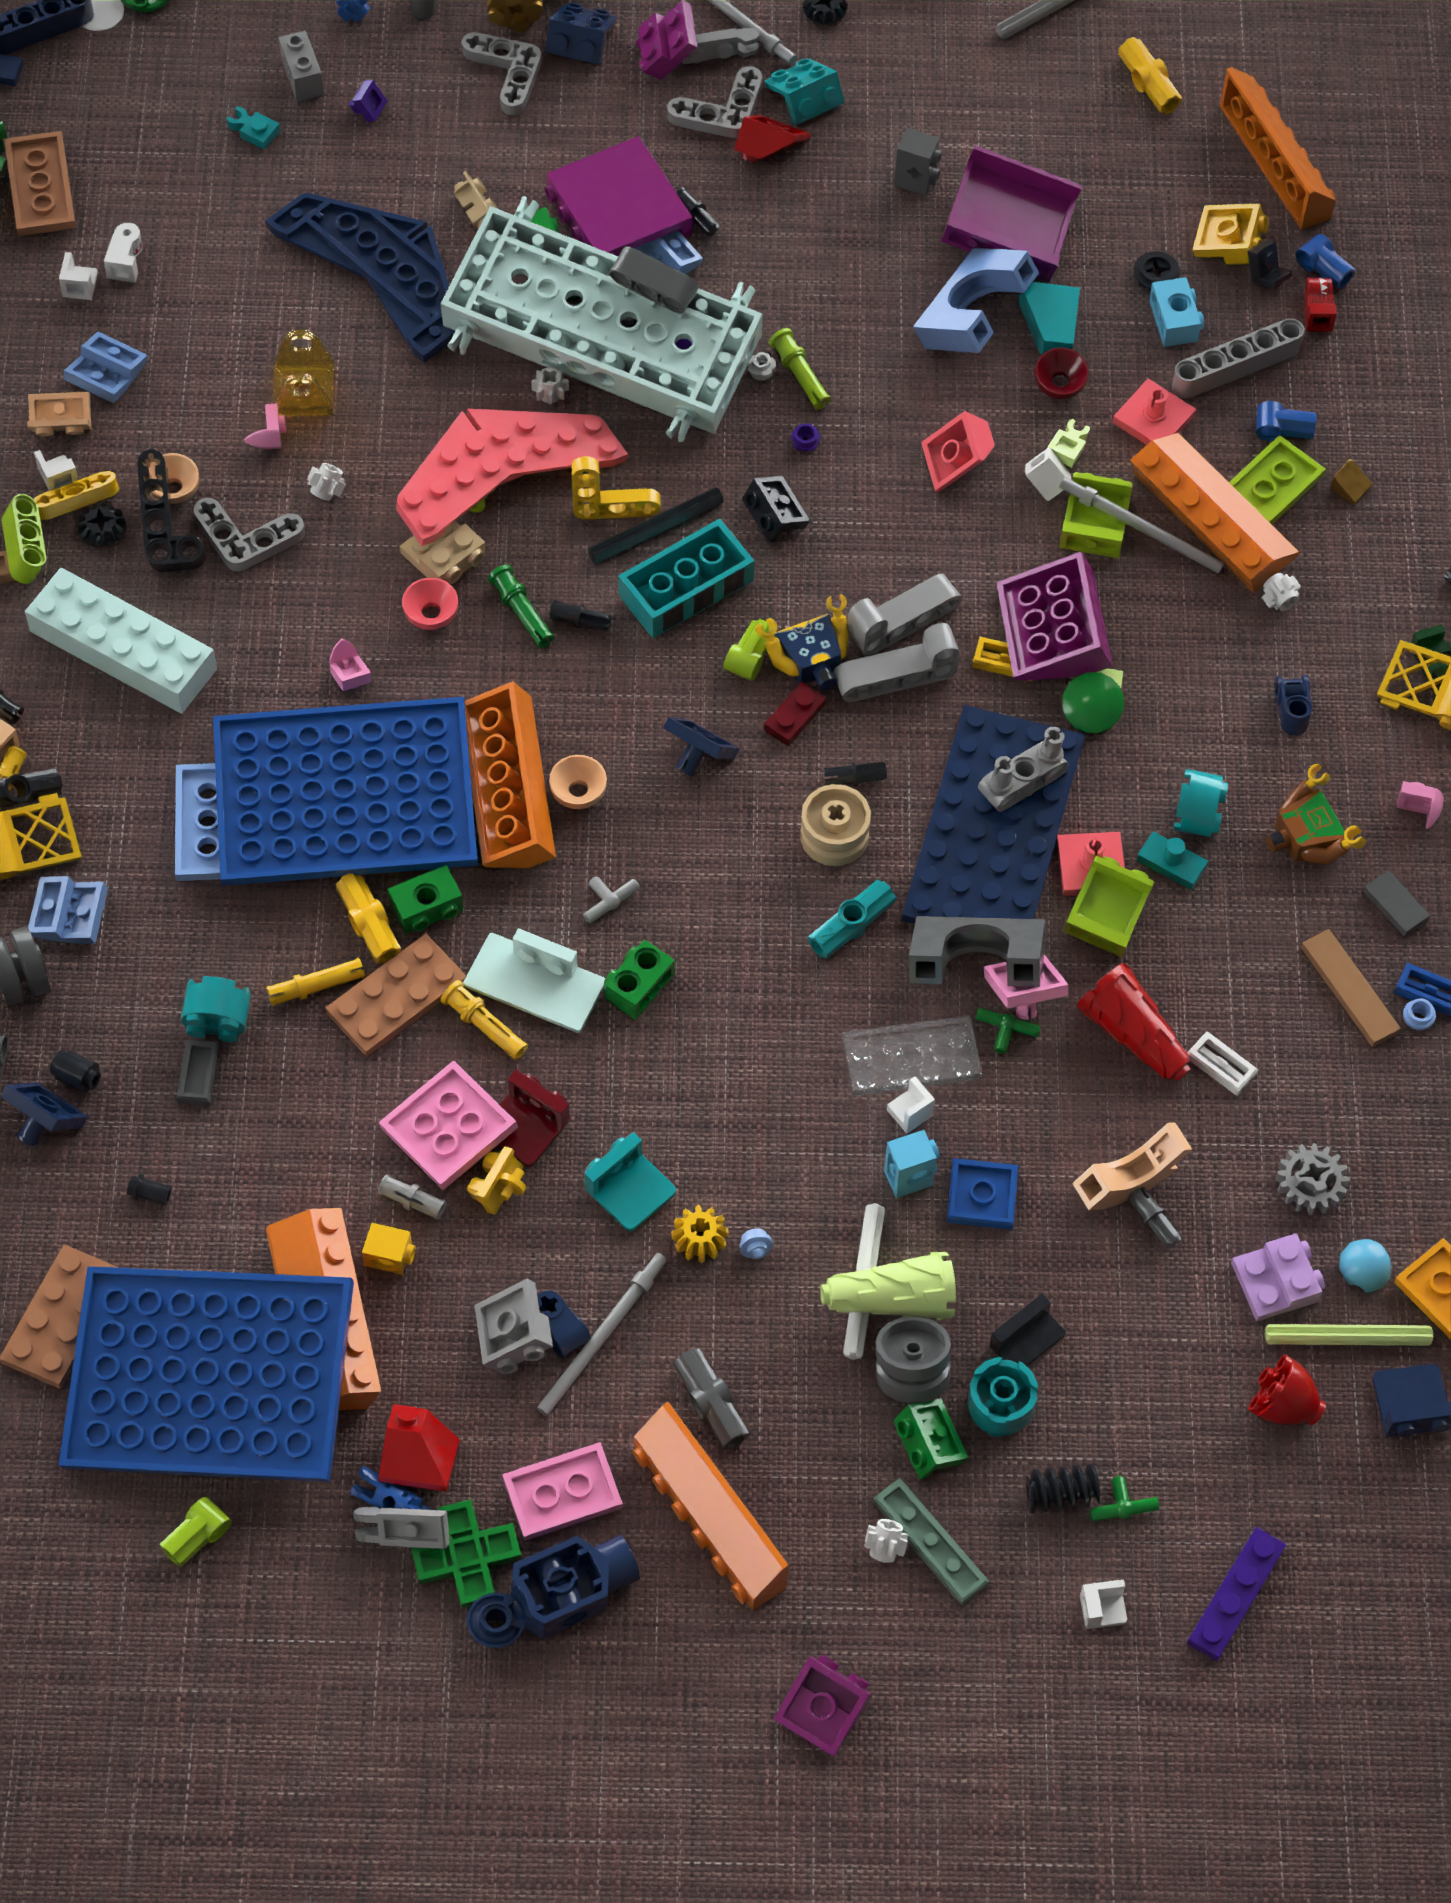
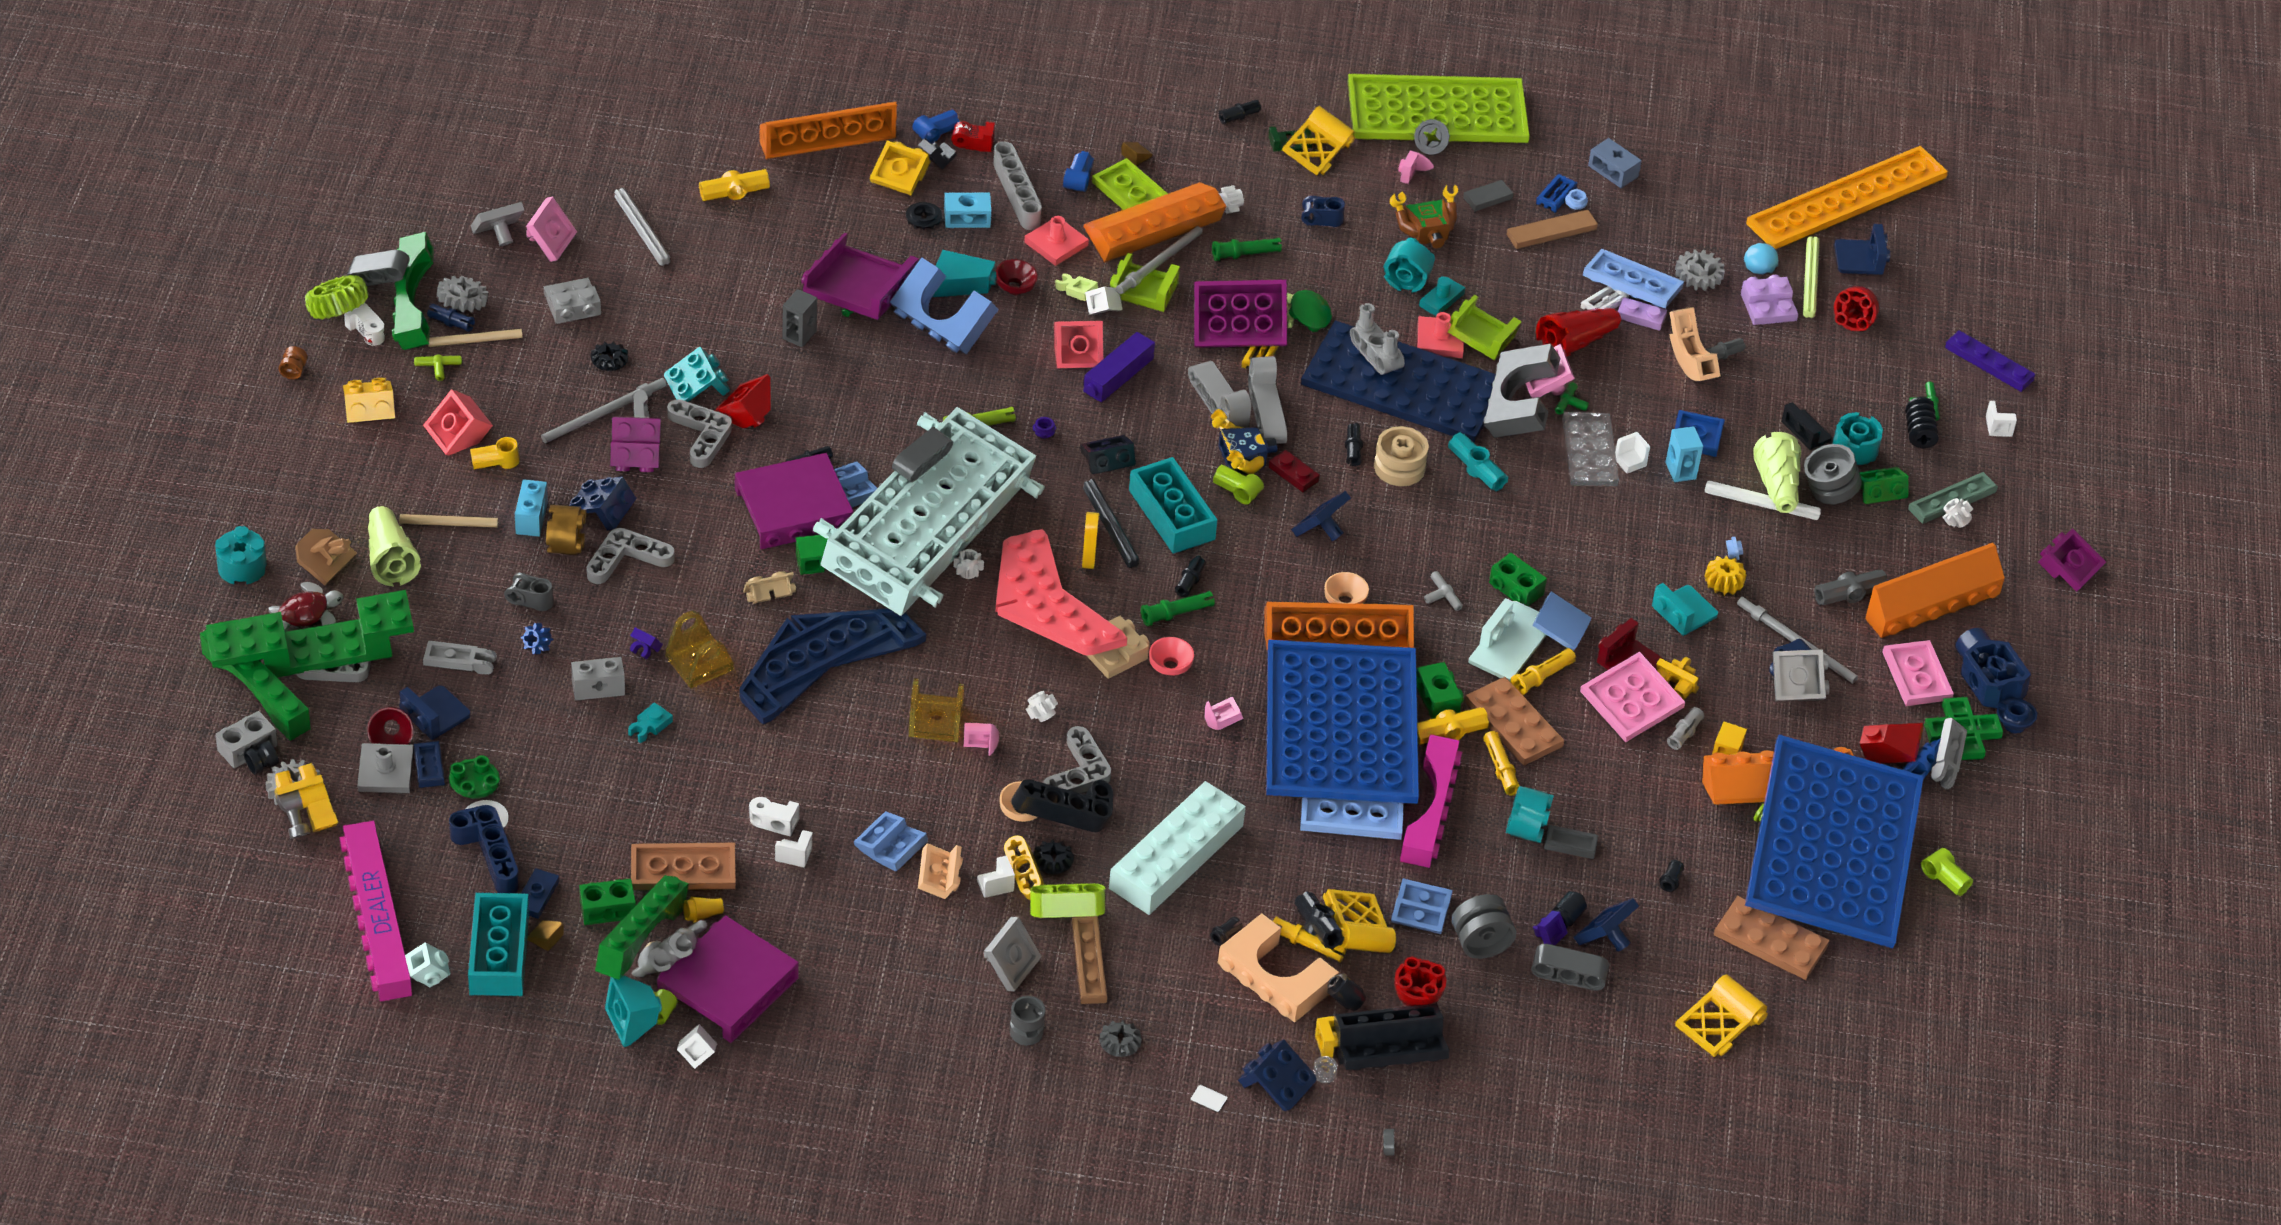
camera: 85 degrees left, 15 degrees down
(38, 1051) = (1551, 928): none -> dark purple tile
(300, 911) = (1421, 836): none -> dark pink arch
(362, 139) = (698, 644): none -> clear yellow hose
(569, 1033) = (1562, 621): none -> medium blue slope
(929, 501) = (1119, 367): none -> dark purple brick
(1192, 610) = (1236, 249): none -> green pin
(1207, 1111) = (1642, 313): none -> lavender plate
(1248, 1098) = (1633, 278): none -> light blue plate

